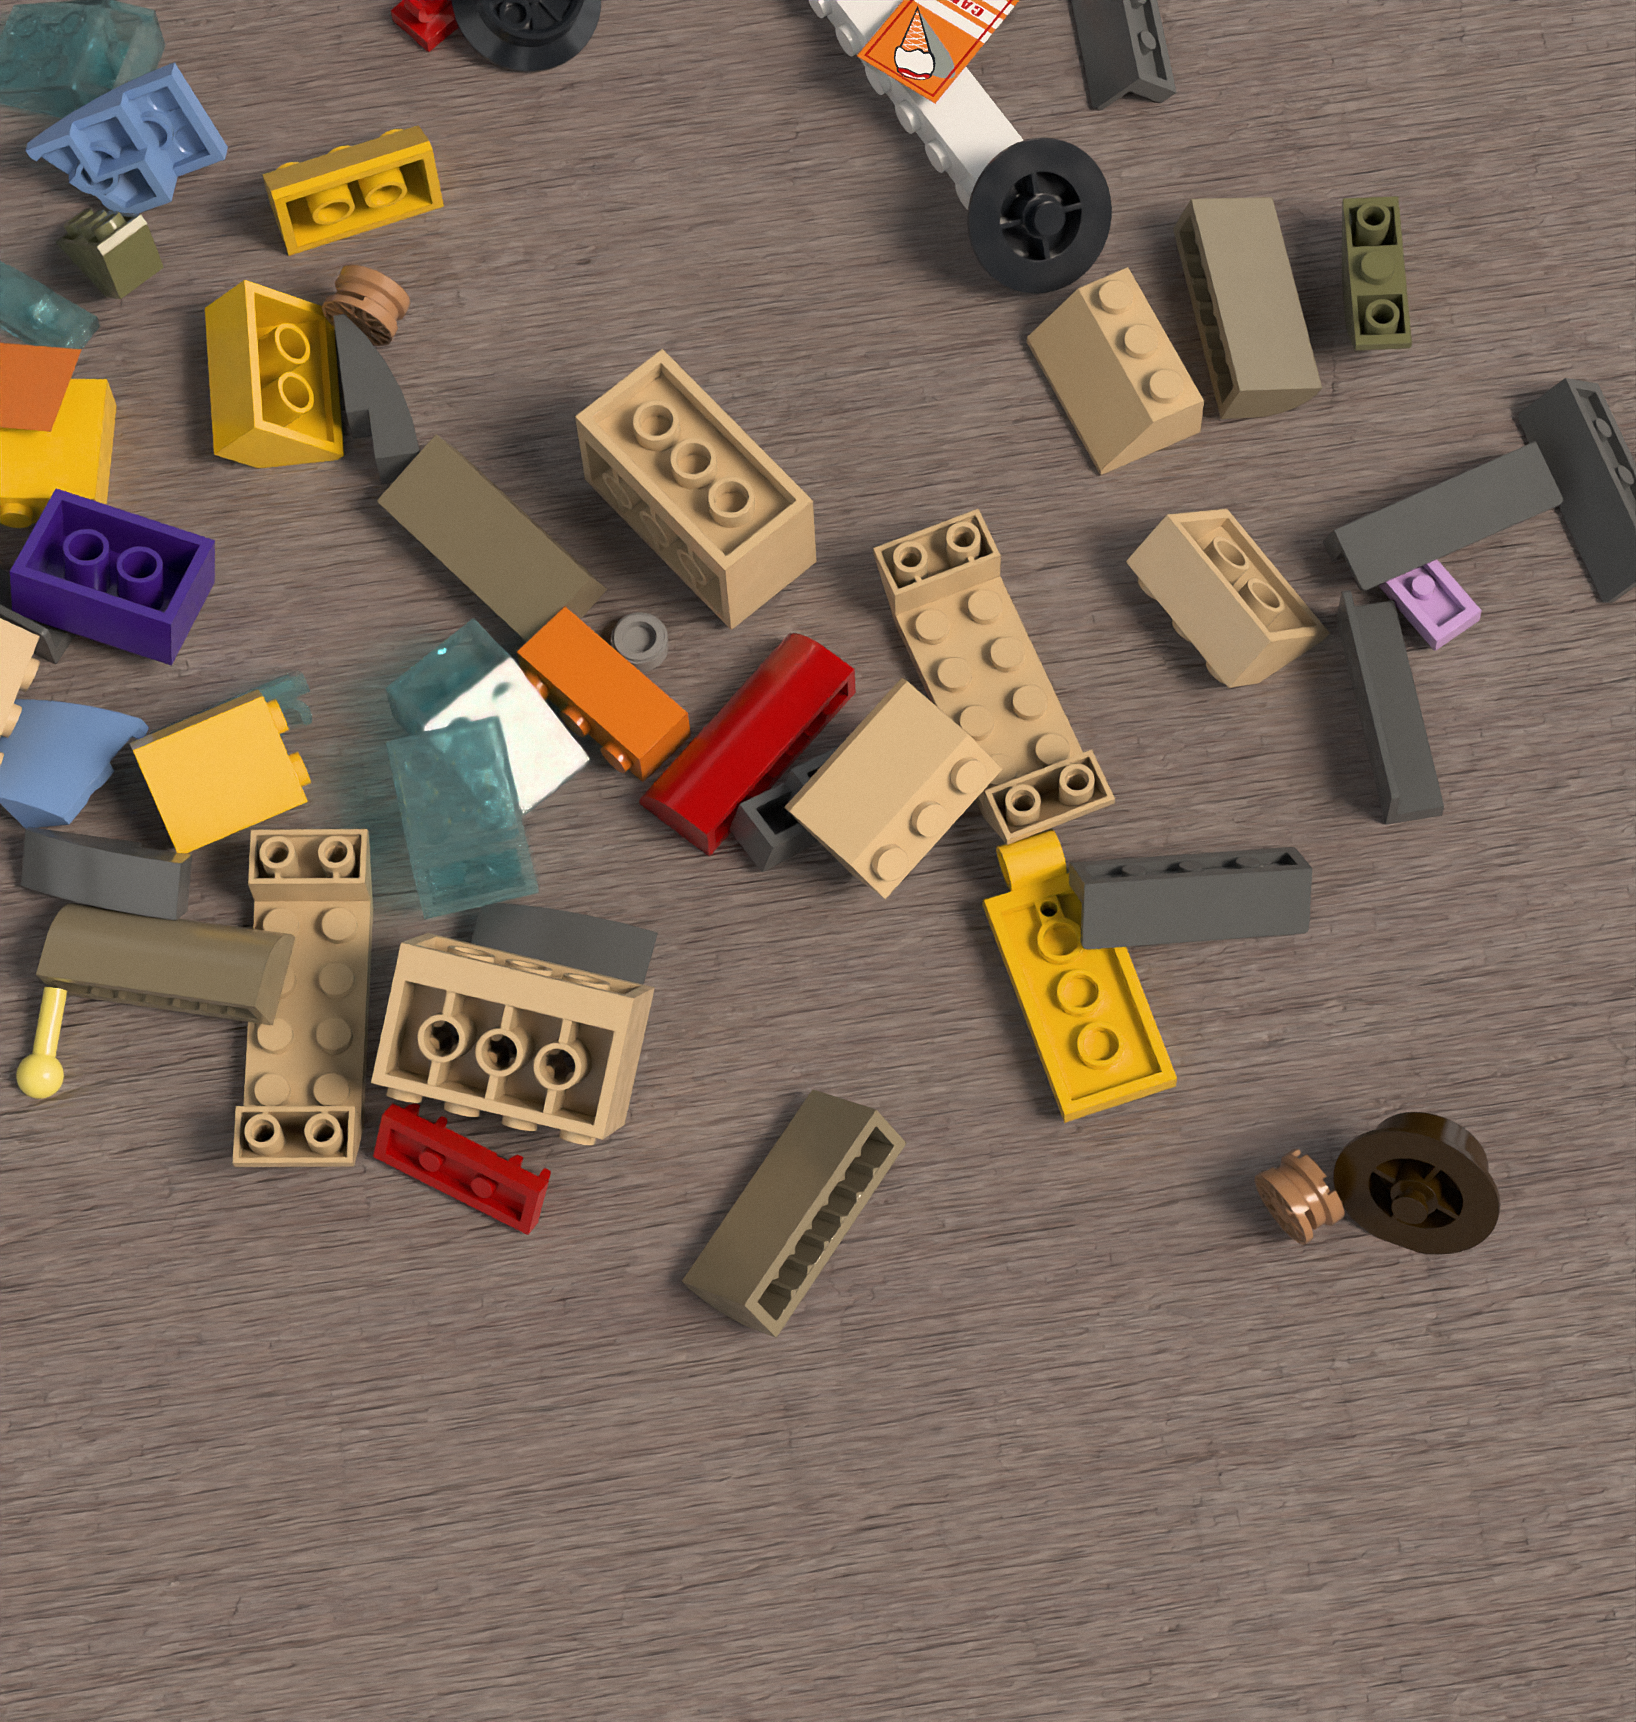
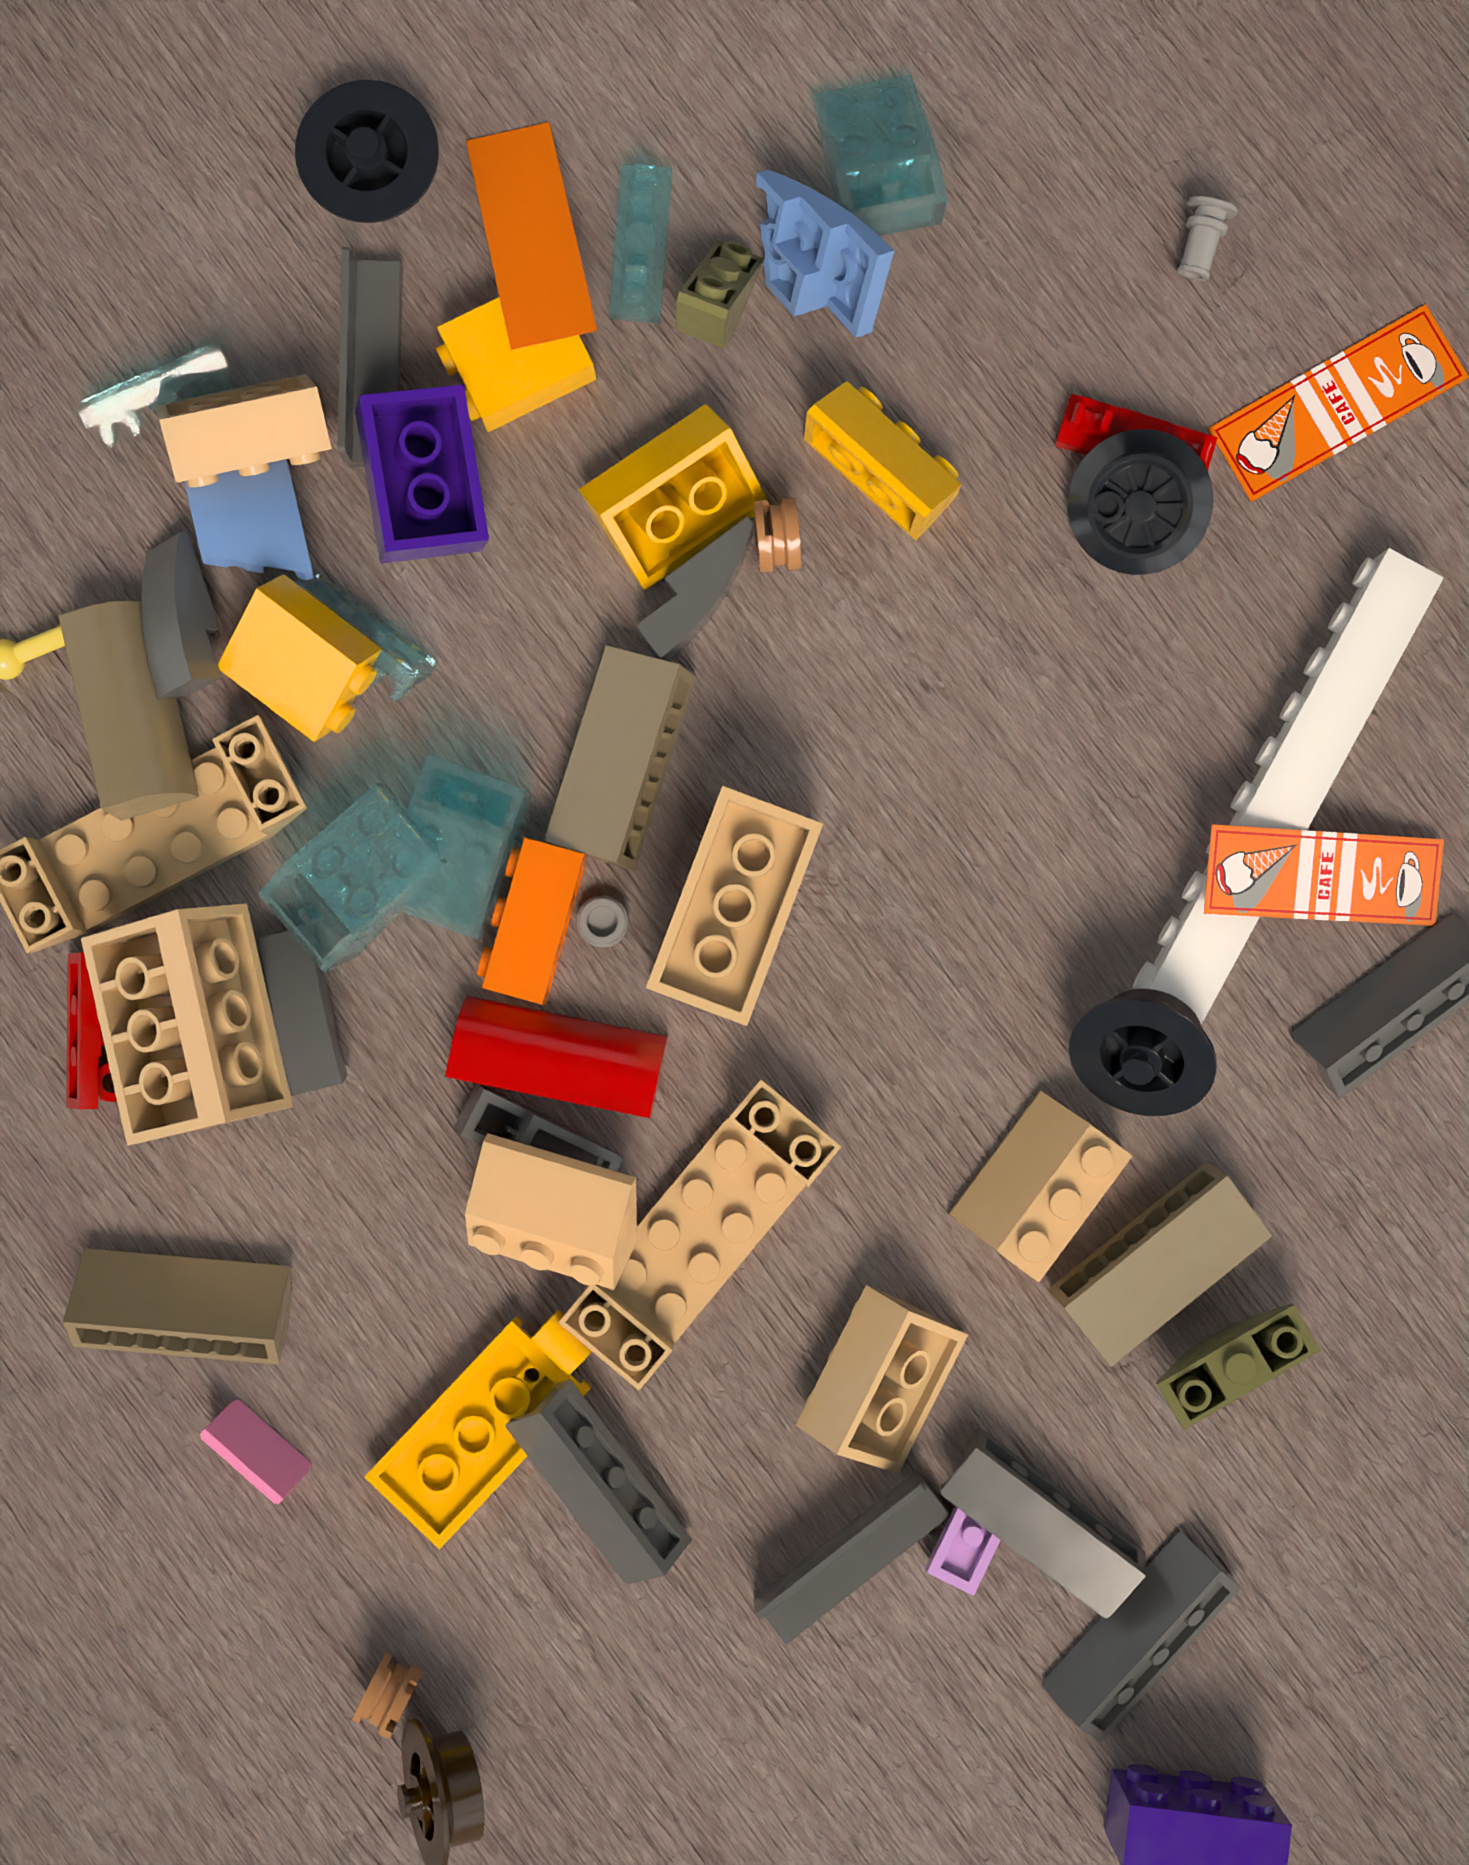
camera: 60 degrees right, 20 degrees up
(984, 1217) = (256, 1451): none -> bright pink slope

